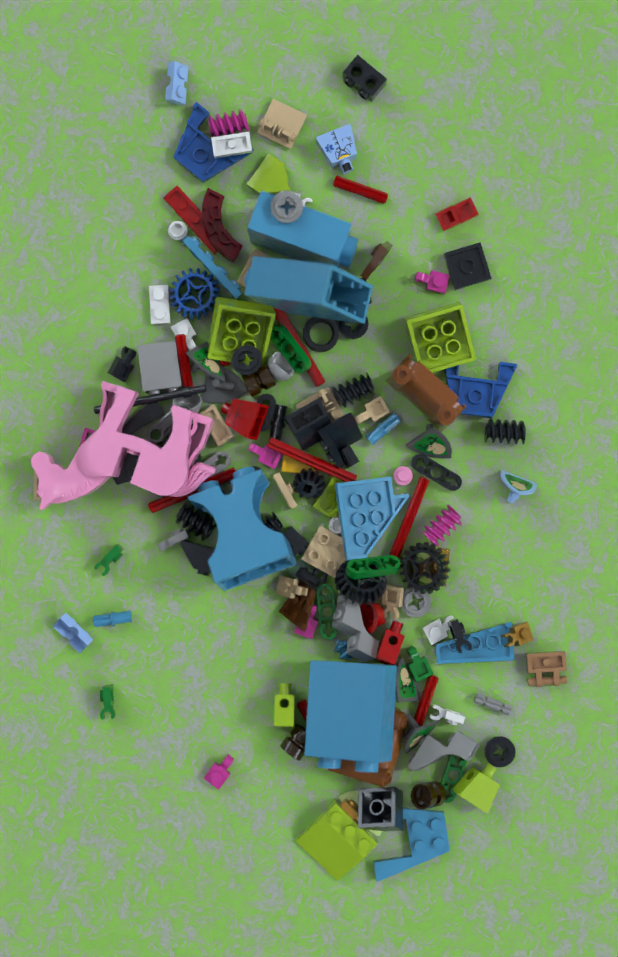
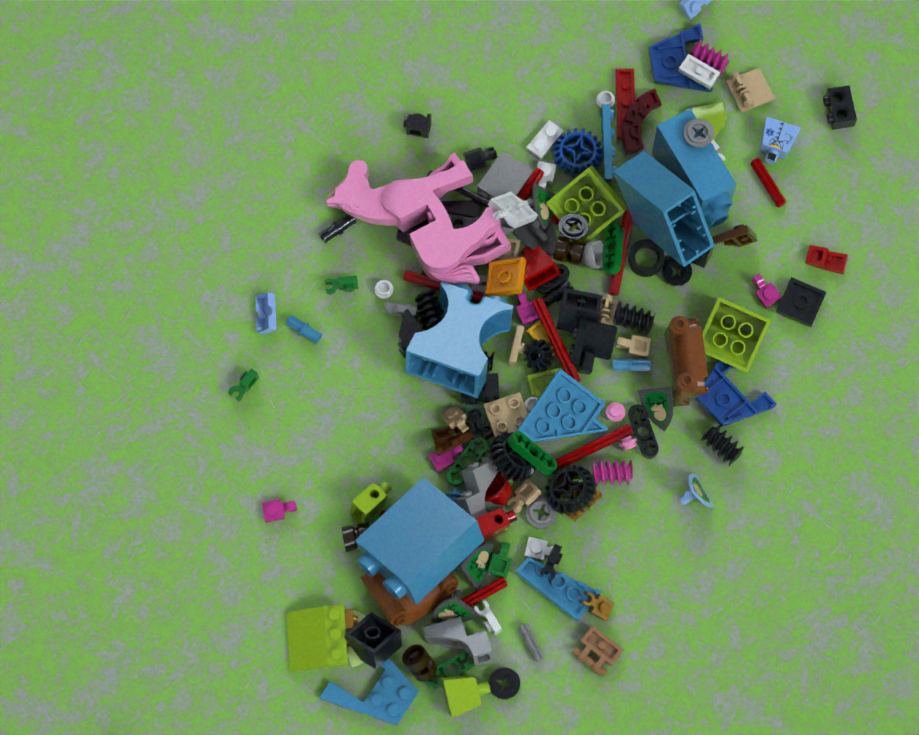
camera: 45 degrees right, 15 degrees down
(51, 379) = (418, 125): none -> black brick
(64, 518) = (337, 228): none -> black pin
(144, 533) = (384, 289): none -> white plate
(190, 389) = (513, 209): none -> white plate
(231, 446) = (505, 277): none -> light orange tile
(433, 492) = (628, 443): none -> bright pink plate

